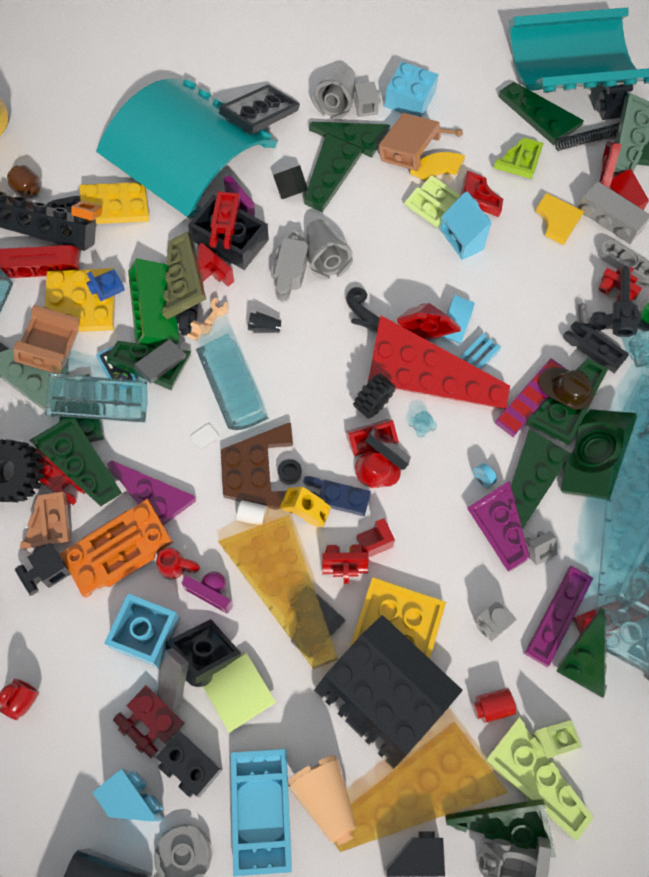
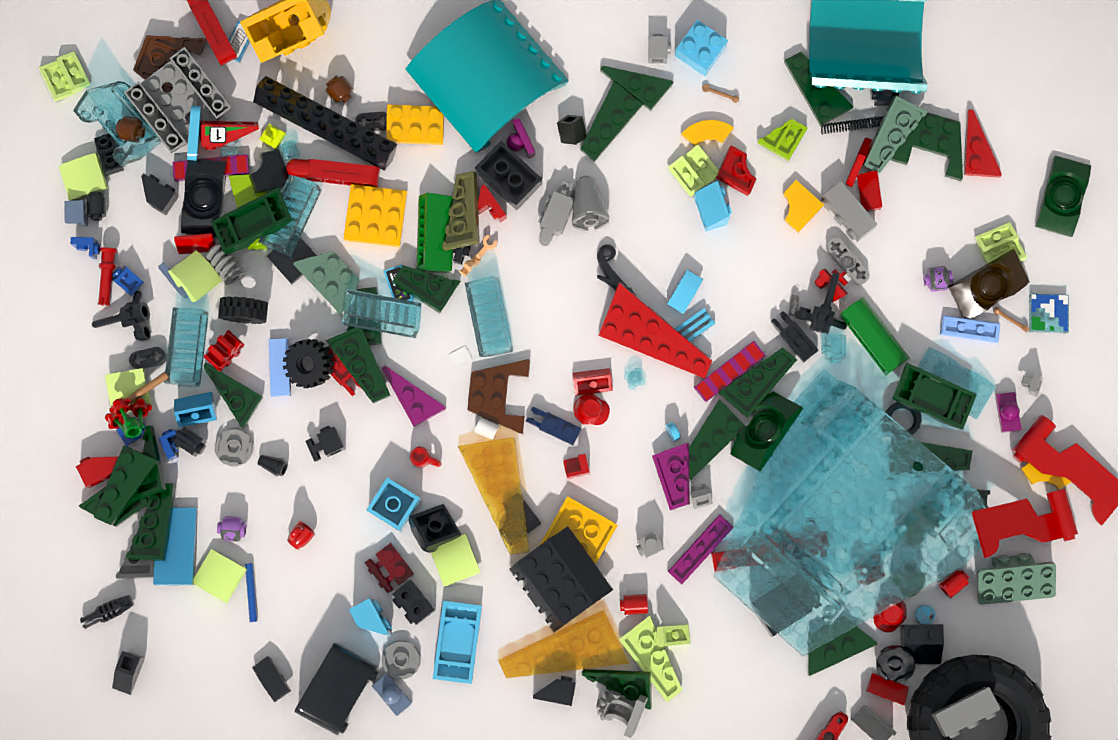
camera: 15 degrees right, 15 degrees up
(47, 340) = (347, 255): nougat panel -> none
(48, 522) = (333, 408): nougat wing -> none
(86, 210) = (391, 138): orange tile -> none
(105, 285) = (398, 210): blue bracket -> none
(116, 548) = (382, 438): orange piece -> none
(159, 361) = (434, 290): flat silver tile -> none
(172, 679) = (410, 543): flat silver tile -> none
(209, 590) = (446, 482): magenta tile -> none
(224, 217) = (506, 169): red hinge -> none
(259, 109) = (557, 50): black piece -> none
(263, 323) = (523, 266): black cone -> none
(289, 471) = (522, 399): black tile -> none
(306, 505) = (528, 432): yellow leg -> none
(325, 798) = (502, 642): light nougat cone -> none
(335, 93) = (632, 39): light grey cone -> none
(345, 564) = (549, 483): red hips -> none
(374, 396) = (599, 351): black tyre -> none
(388, 449) = (601, 397): black tile -> none
(408, 141) = (685, 105): nougat panel -> none
(428, 322) = (657, 292): red slope -> none
(567, 387) = (757, 370): dark brown piece -> none
(587, 656) = (707, 586): dark green wing -> none

